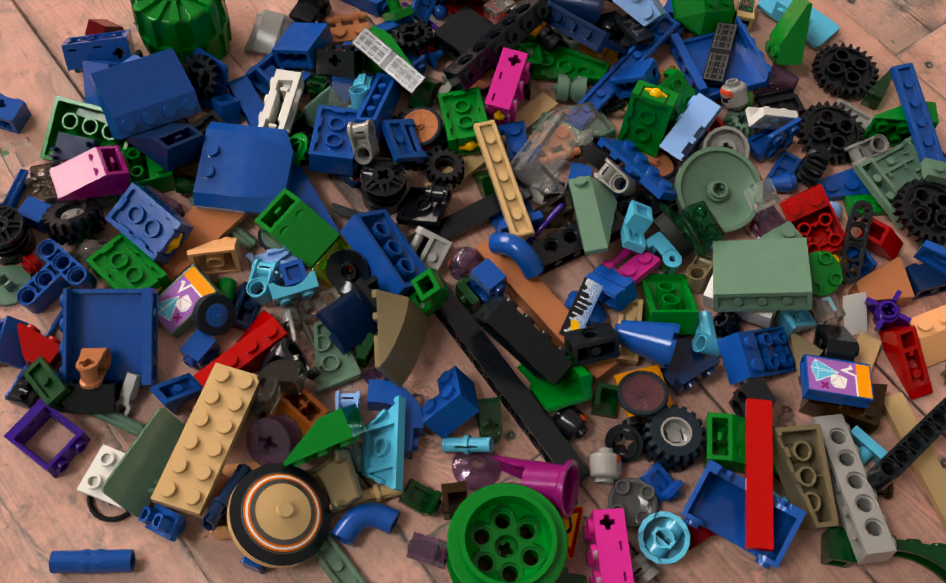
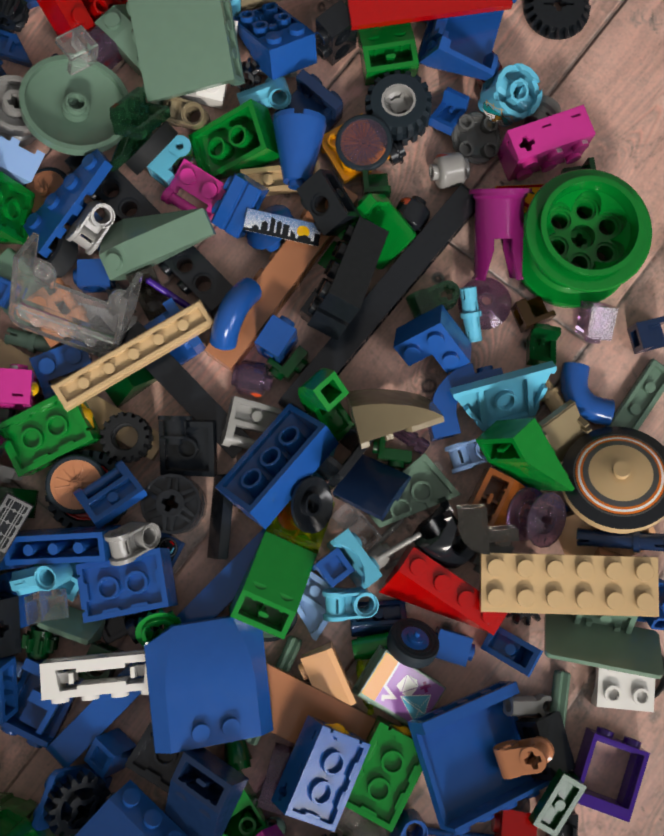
camera: 105 degrees left, 20 degrees up
(614, 436) = (418, 143): black gear -> none
(635, 224) = (143, 190): medium azure slope -> none
(785, 182) = (33, 42): blue cone -> none

